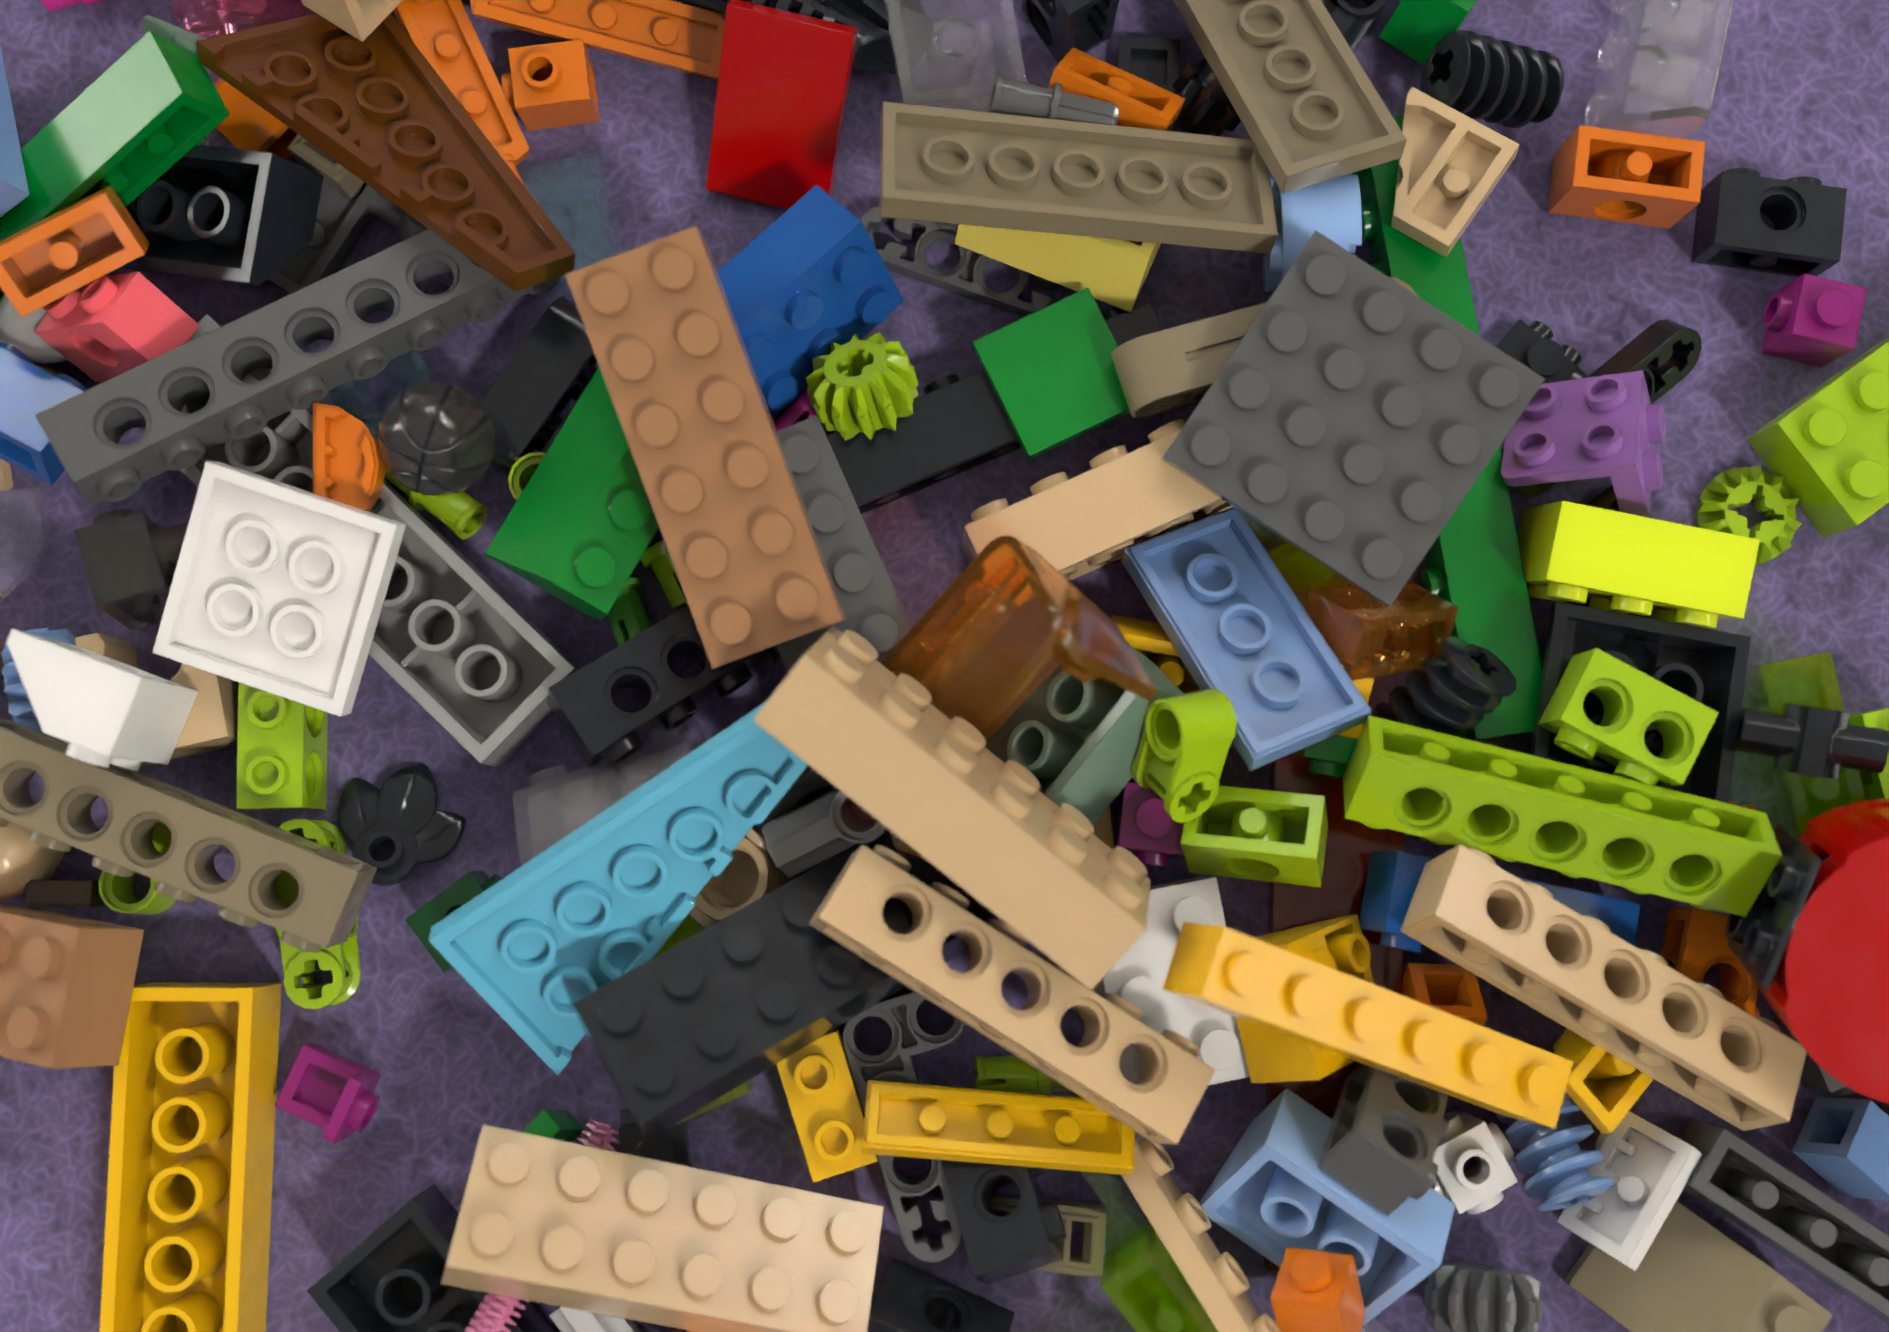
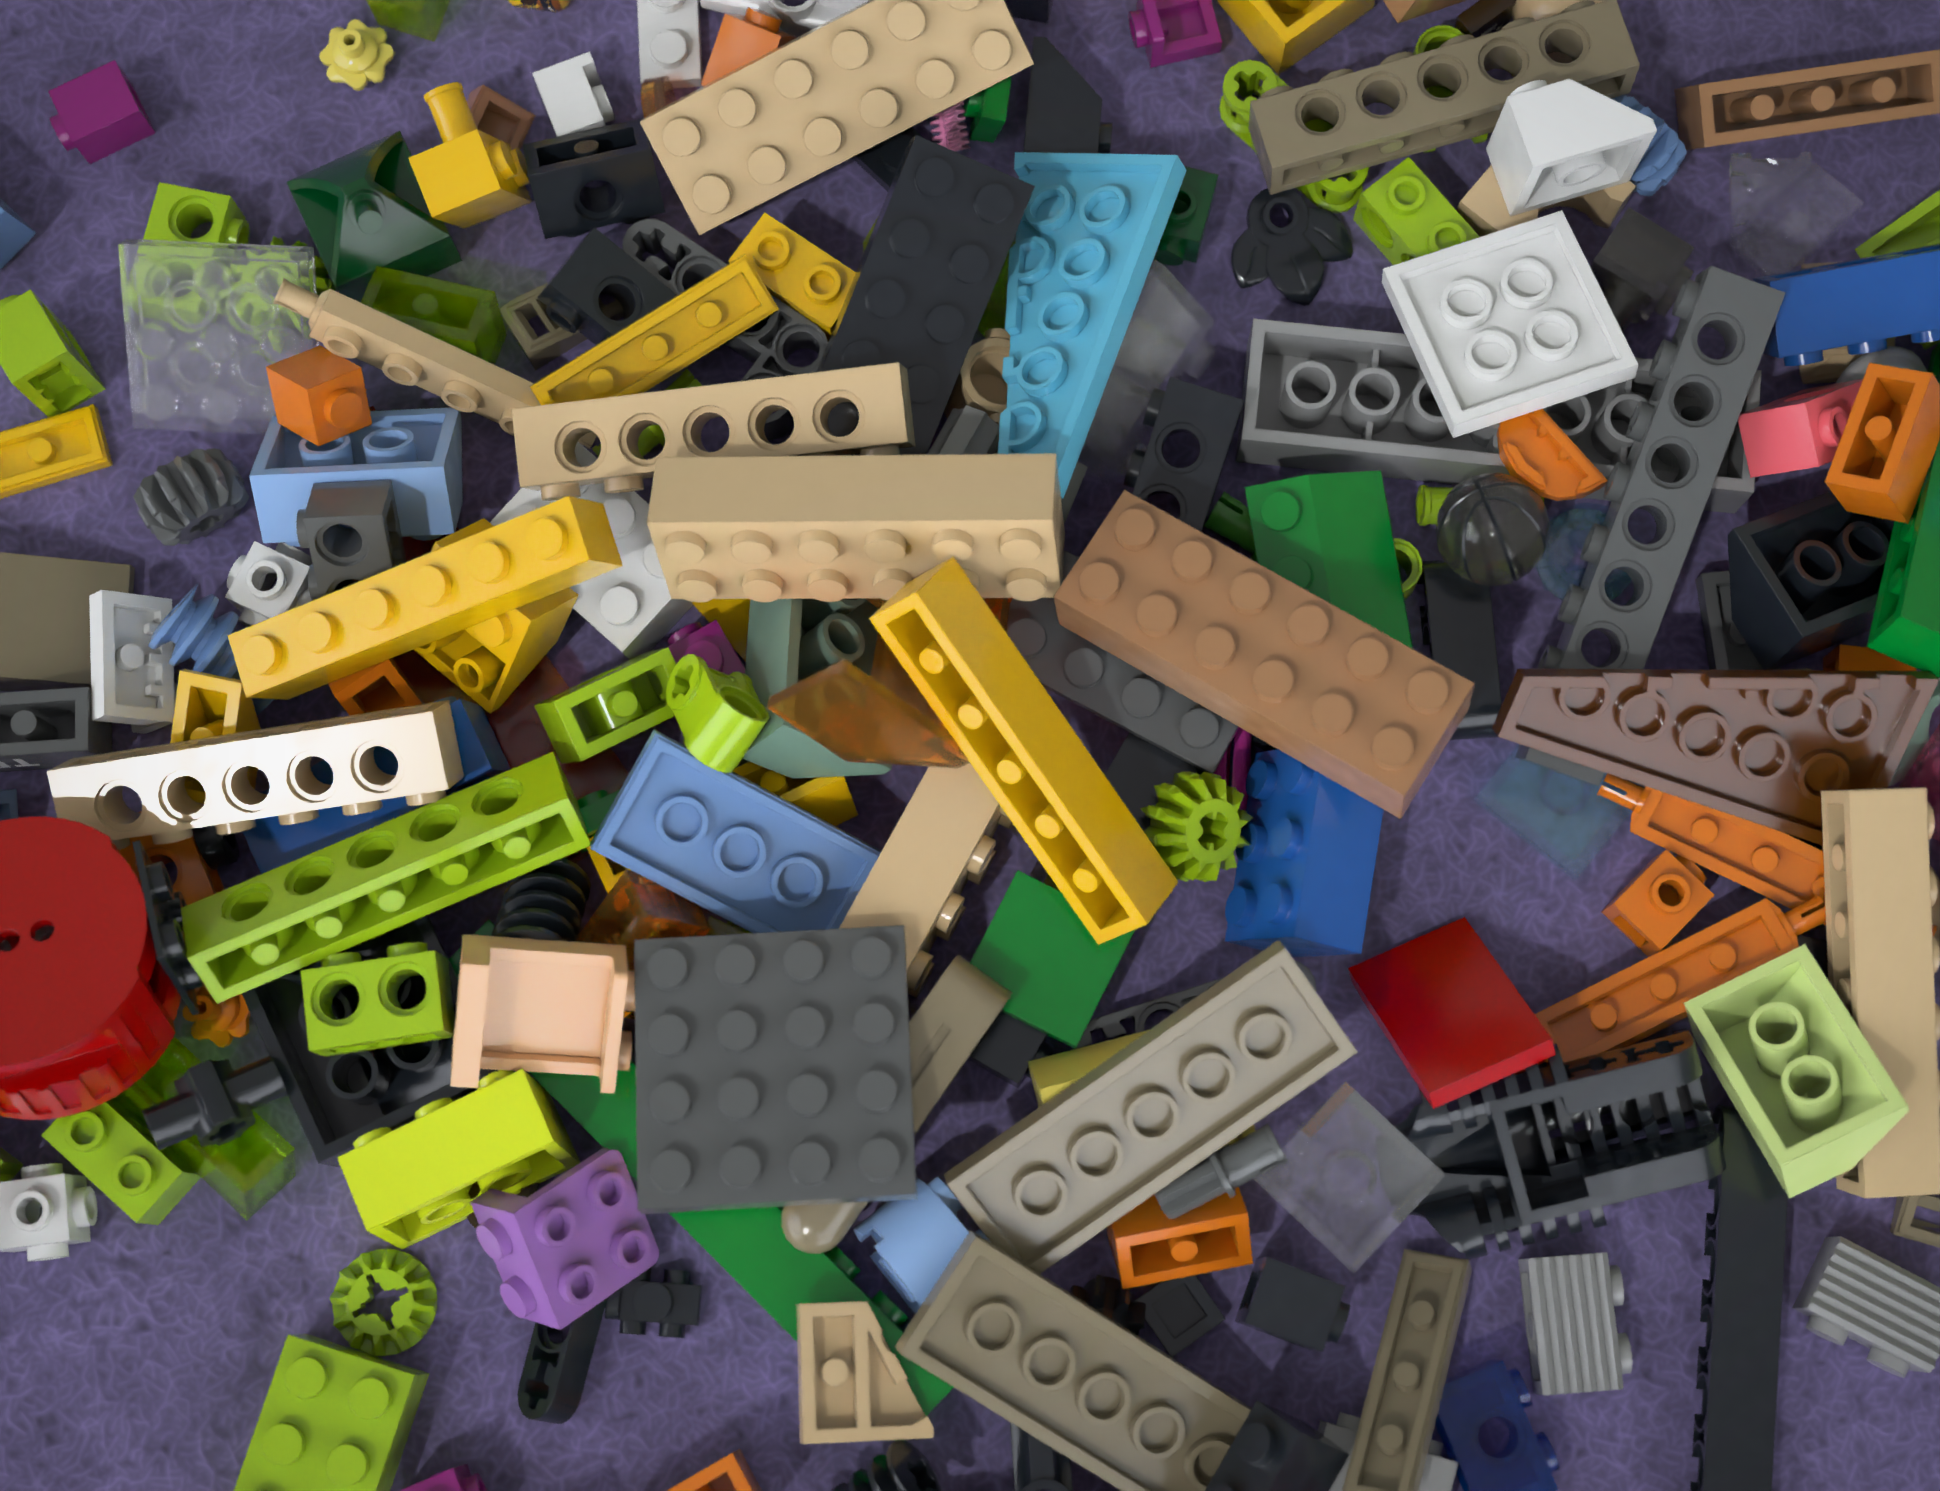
camera: 150 degrees right, 5 degrees down
(488, 1083) = (1062, 107): none -> black slope
(963, 521) = (1025, 751): none -> yellow brick
(1498, 615) = (541, 1009): none -> light nougat panel

